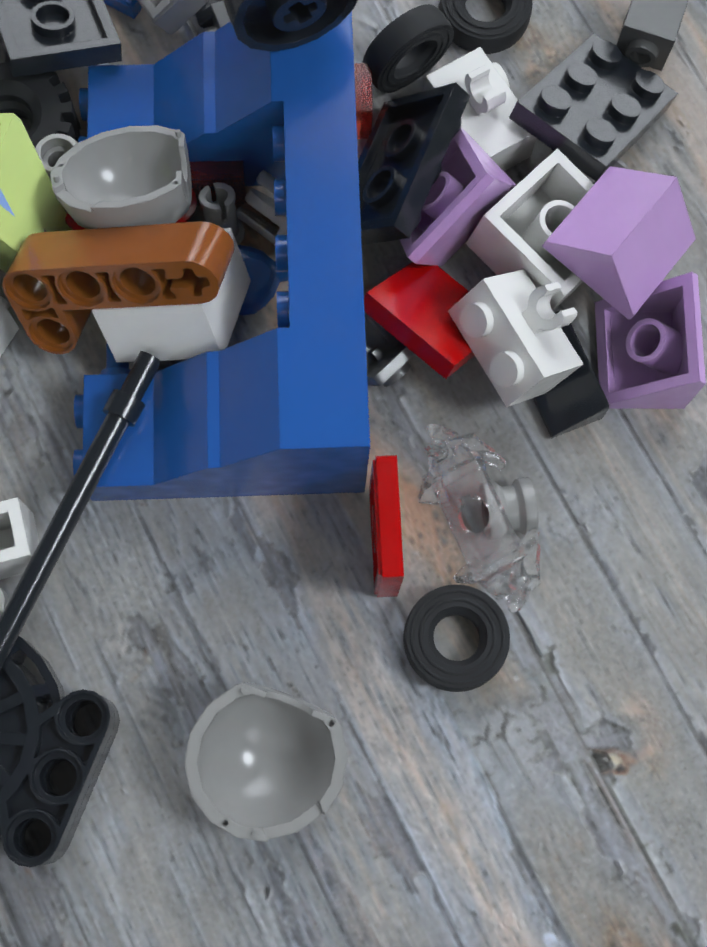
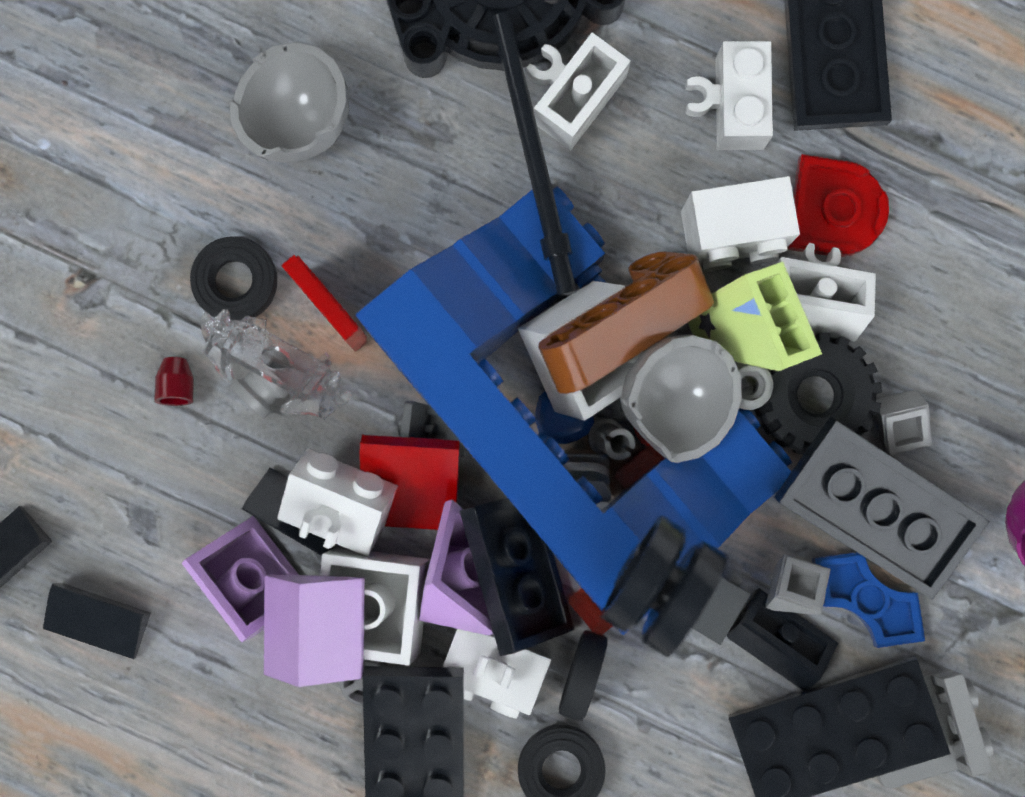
camera: 145 degrees right, 10 degrees up
(588, 580) = (174, 383): none -> dark red hose

